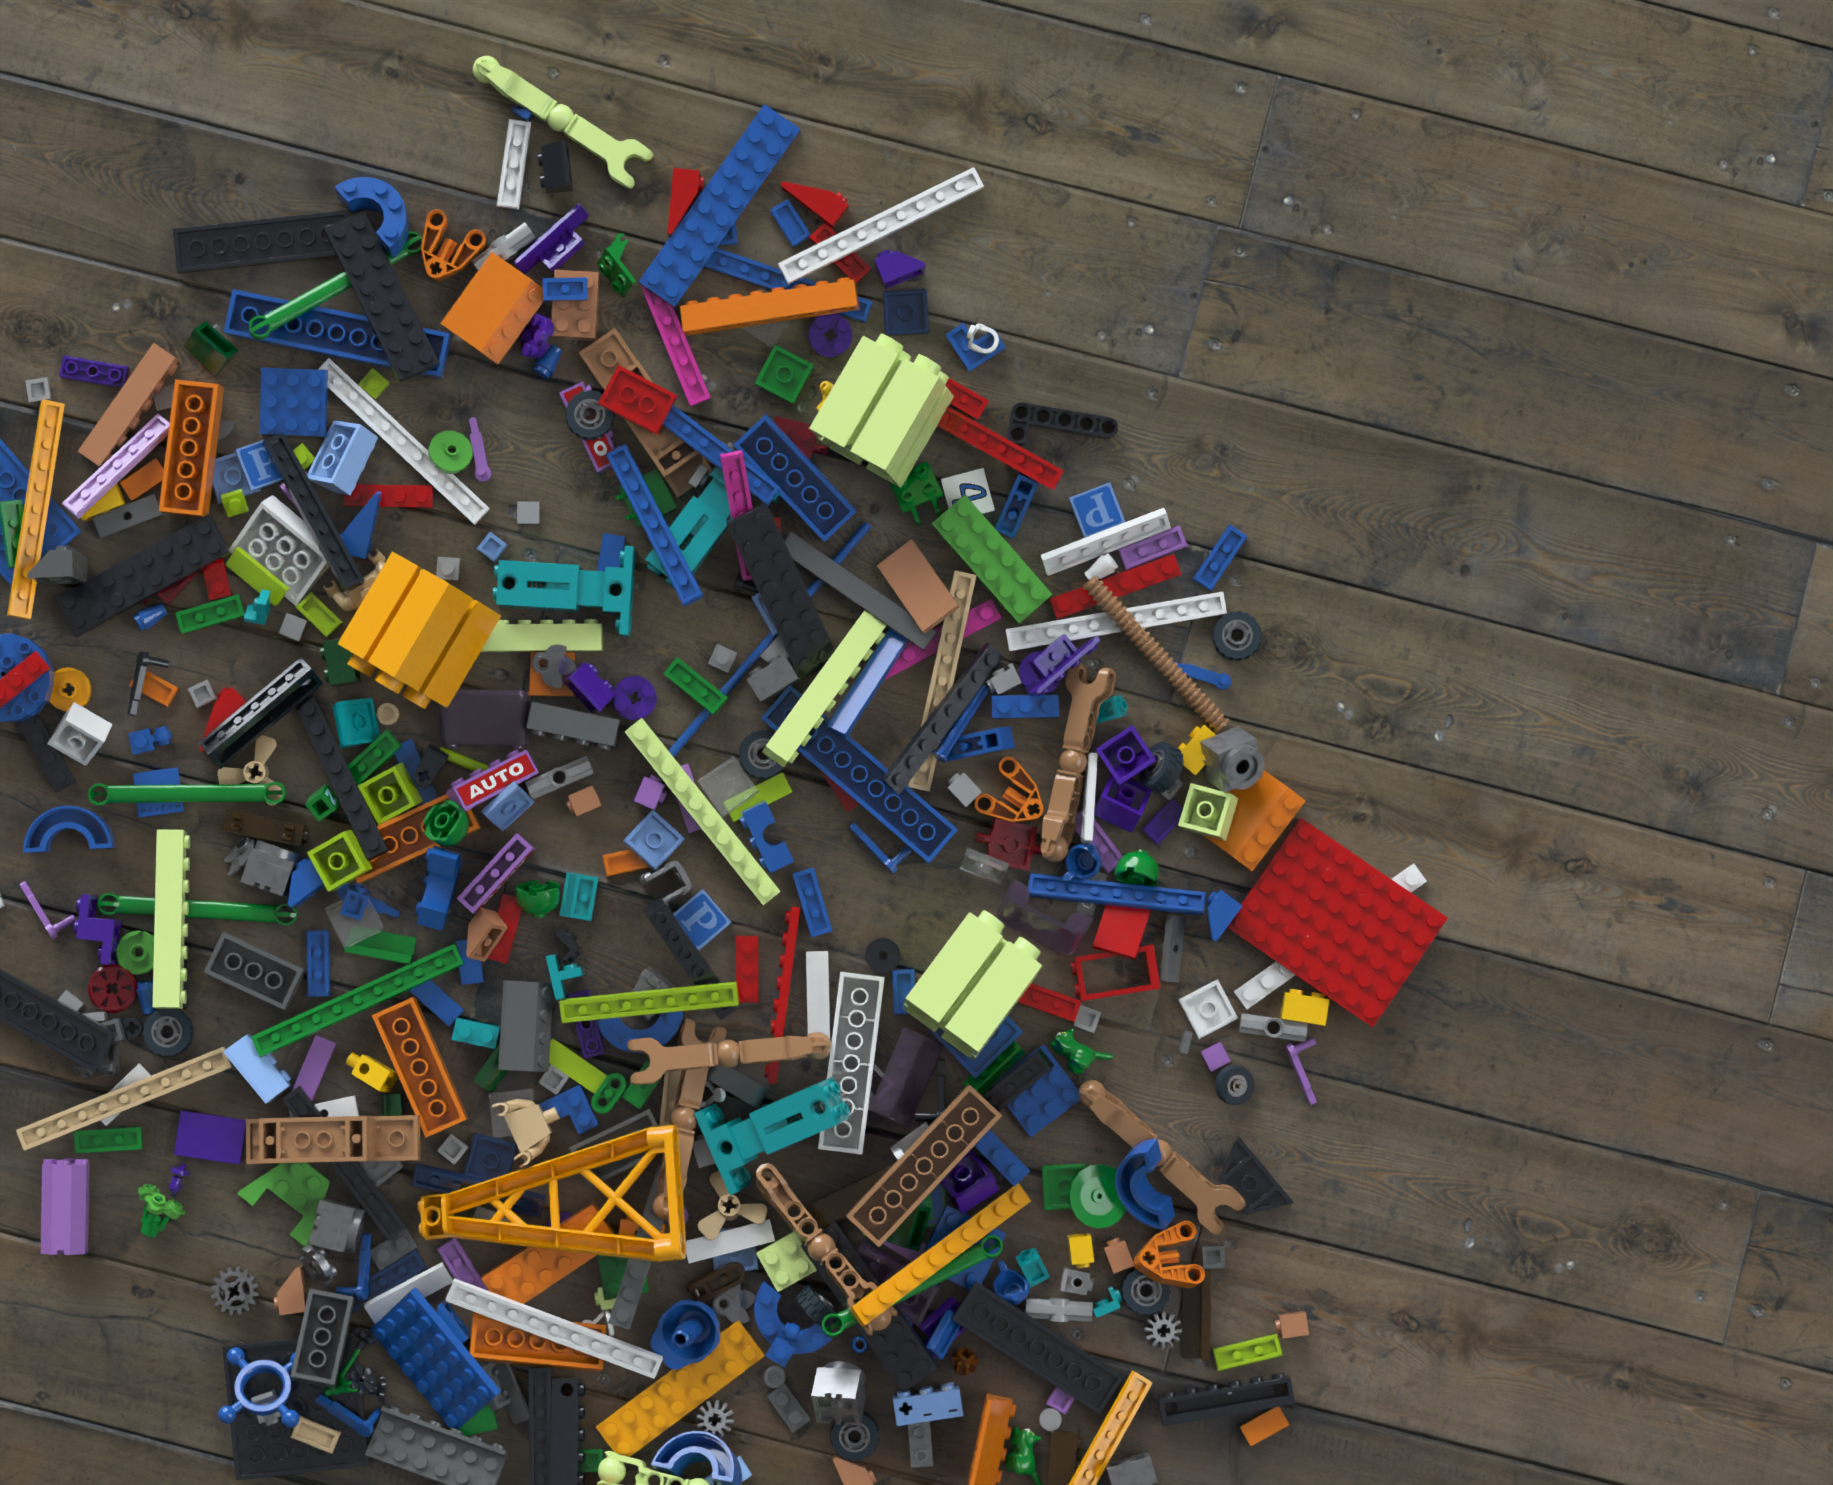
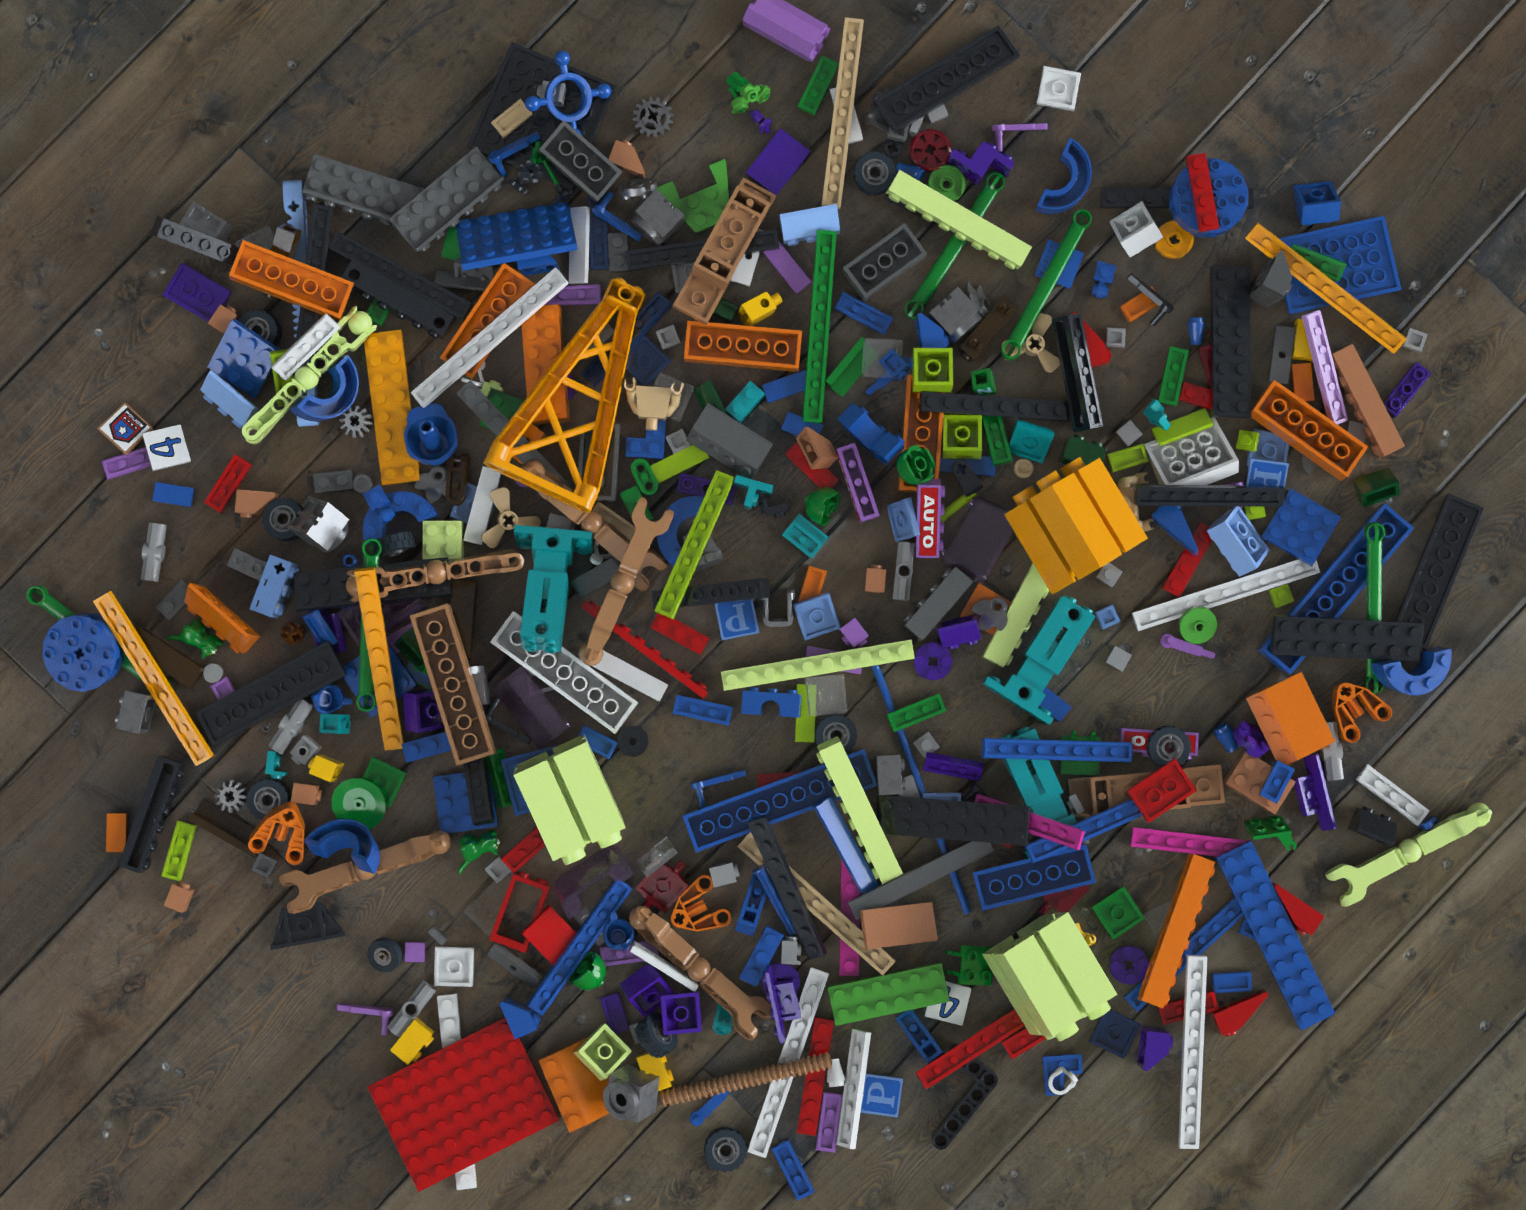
camera: 120 degrees right, 0 degrees up
(729, 619) = (953, 766): none -> dark purple plate

